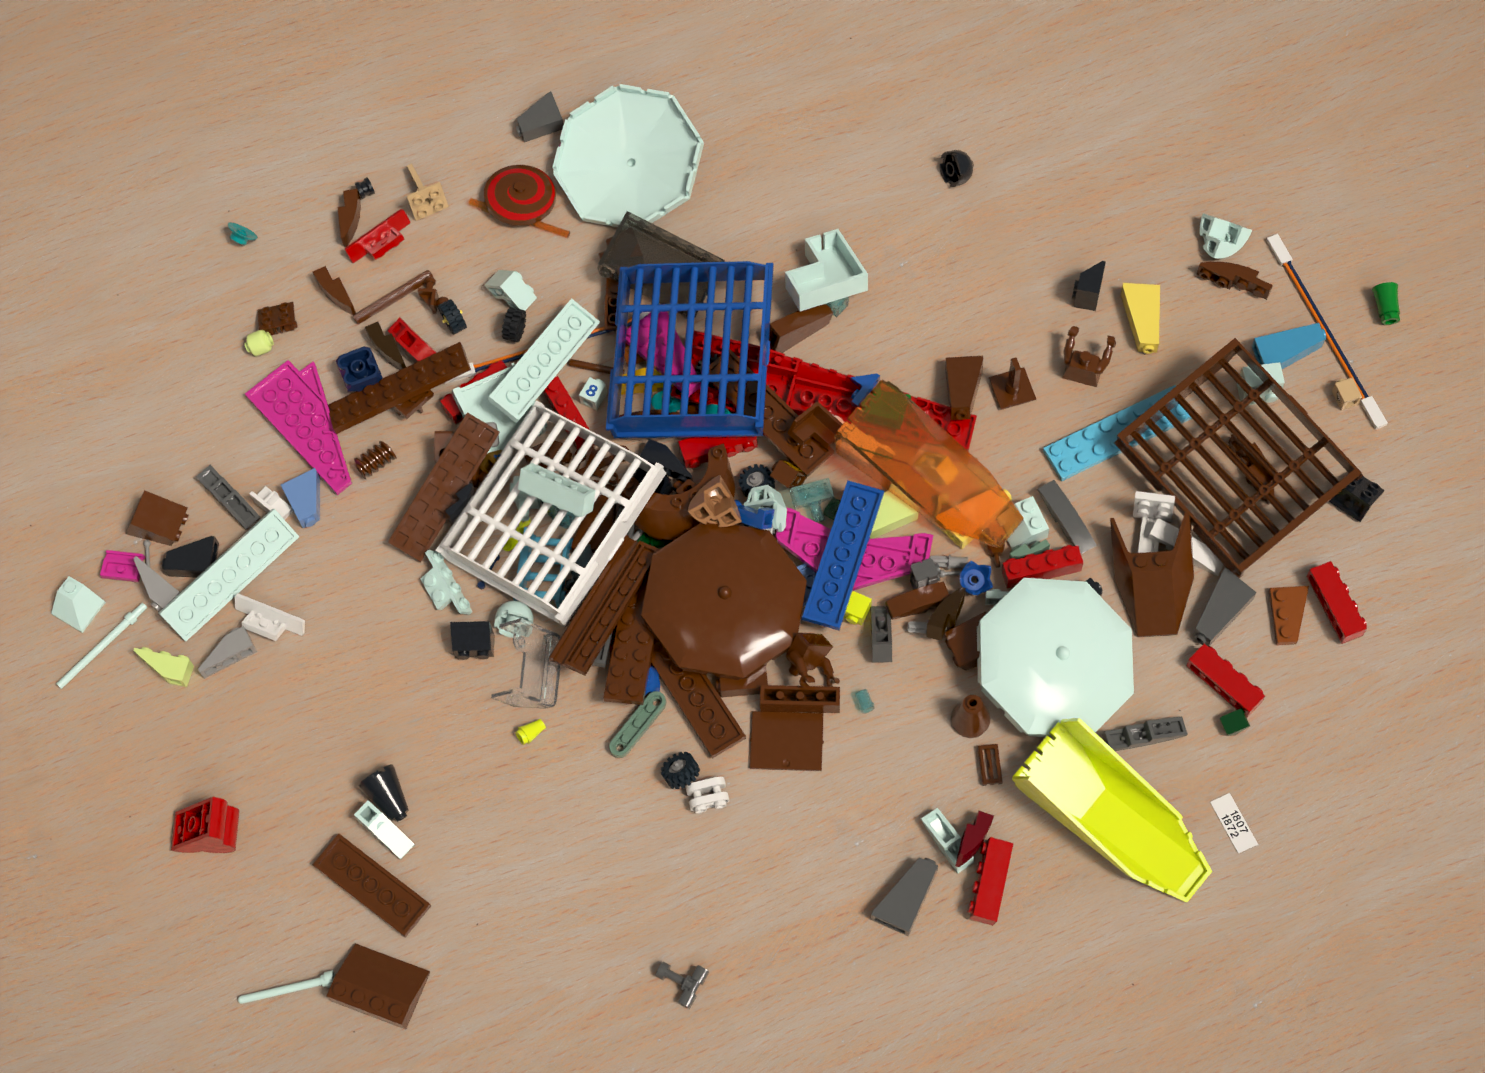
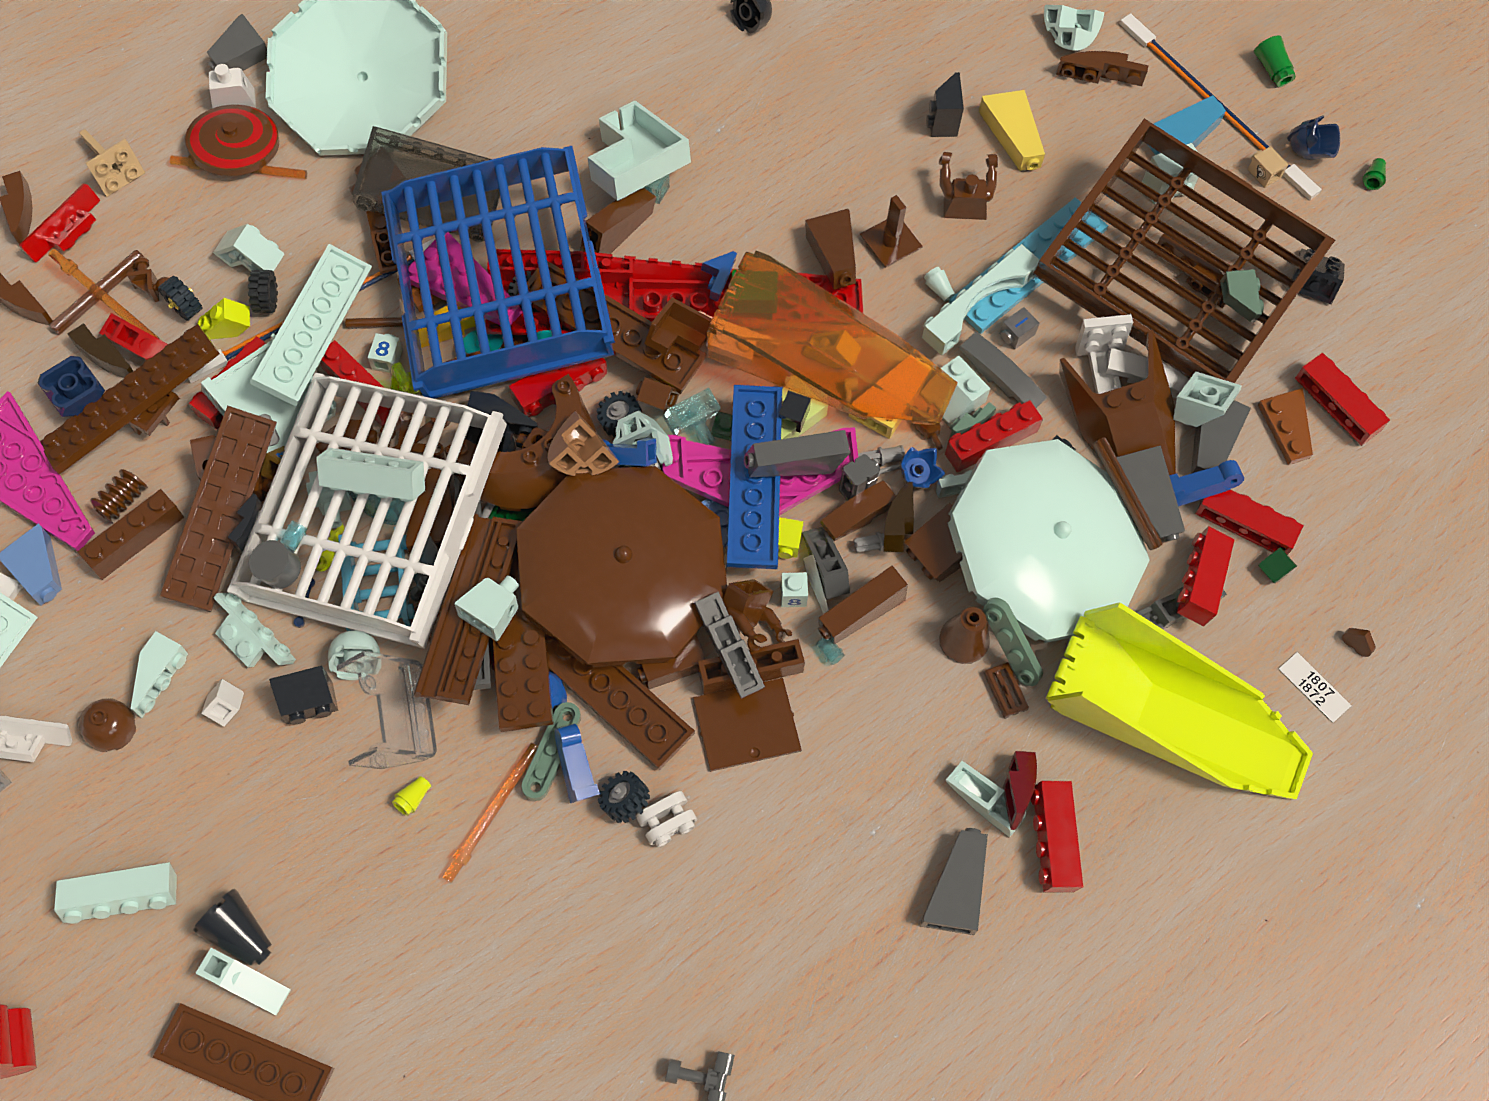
camera: 25 degrees left, 0 degrees up
(312, 746) = (115, 893): none -> light aqua brick
(331, 627) = (107, 725): none -> reddish brown cylinder
(364, 188) = (30, 169): black wheel -> none
(375, 591) = (155, 668): none -> light aqua slope
(377, 275) = (71, 268): none -> clear orange bar
(377, 491) = (131, 534): none -> reddish brown brick
(414, 630) = (223, 702): none -> white panel
(473, 540) = (275, 564): none -> dark grey piece
(481, 341) = (225, 319): none -> neon yellow slope
(491, 522) = (293, 535): none -> clear light blue piece
(528, 152) = (230, 87): none -> white torso
(555, 783) = (463, 855): none -> clear orange bar
(598, 420) = (400, 380): none -> clear neon green tile
(618, 607) = (489, 606): none -> light aqua torso
(651, 738) = (575, 764): none -> leg
(786, 678) = (729, 645): none -> slope
(850, 649) = (794, 589): none -> light aqua brick
(868, 649) = (815, 582): none -> white sticker
(878, 548) = (798, 455): none -> dark grey slope
(889, 511) = (795, 409): none -> black panel
(897, 674) = (864, 606): none -> reddish brown slope
(1001, 729) = (1013, 641): none -> sand green plate
(1039, 432) = (937, 281): none -> light aqua cone
(1091, 484) = (1019, 328): none -> flat silver brick
(1098, 437) = (1012, 272): none -> light aqua arch
(1128, 637) = (1127, 494): none -> reddish brown axle
(1150, 635) = (1154, 489): none -> dark grey slope
(1171, 716) = (1205, 576): none -> red brick
(1195, 643) = (1206, 482): none -> blue leg
(1215, 576) = (1204, 399): none -> light aqua slope
(1276, 498) = (1241, 293): none -> sand green slope
(1281, 796) = (1359, 640): none -> reddish brown tile
(1395, 380) = (1315, 140): none -> dark blue helmet
(1437, 422) = (1375, 175): none -> green cone

